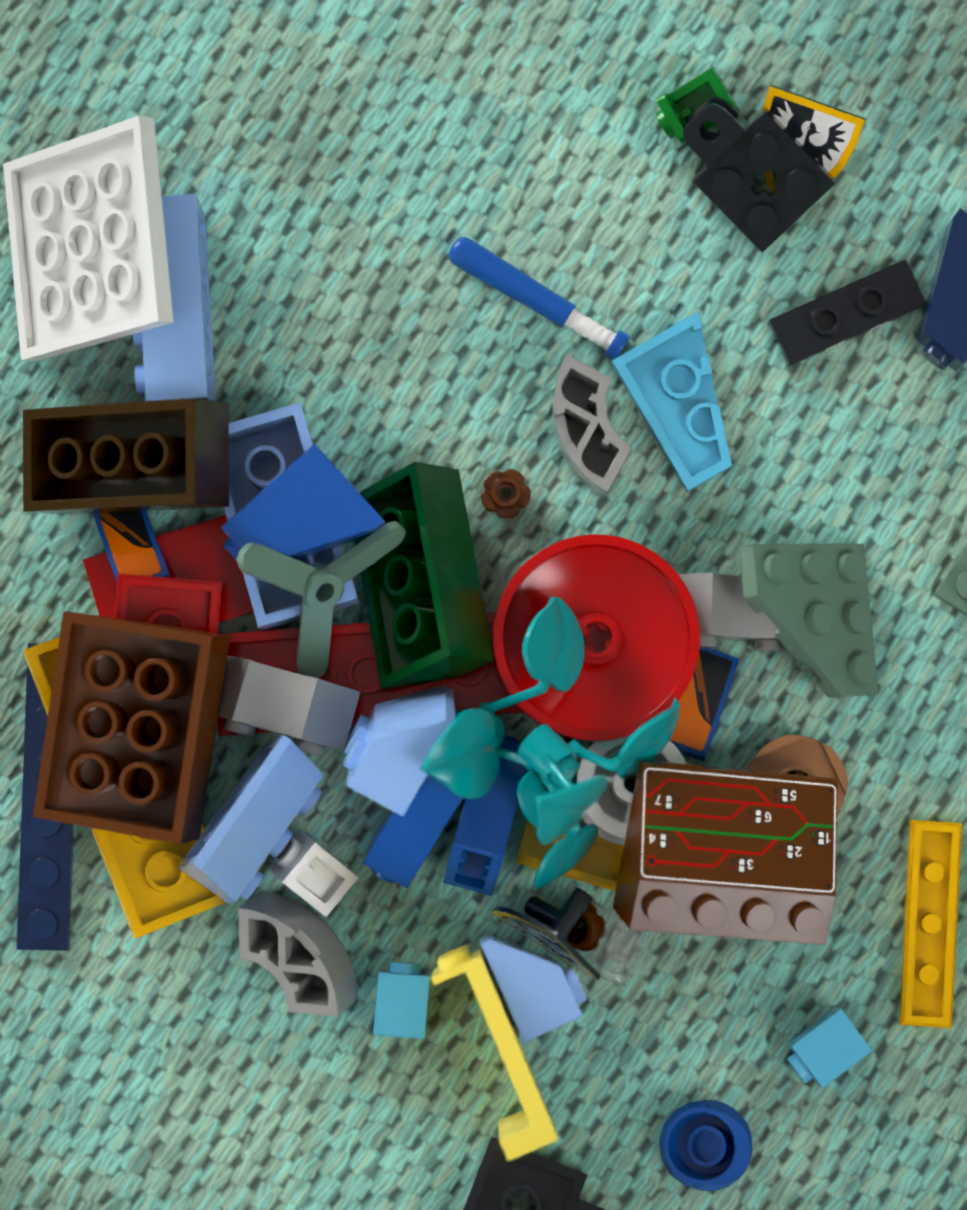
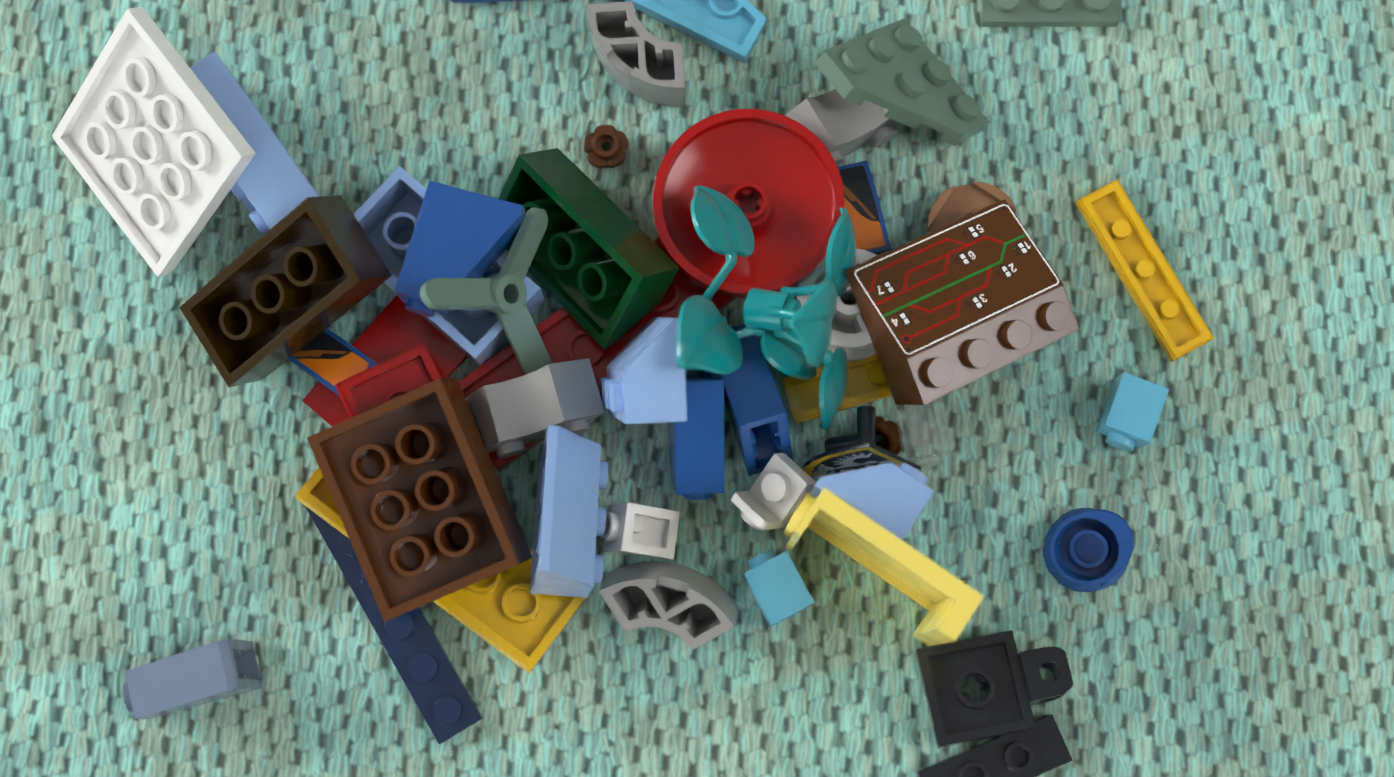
camera: 30 degrees left, 5 degrees down
(452, 917) = (774, 494): none -> white bracket

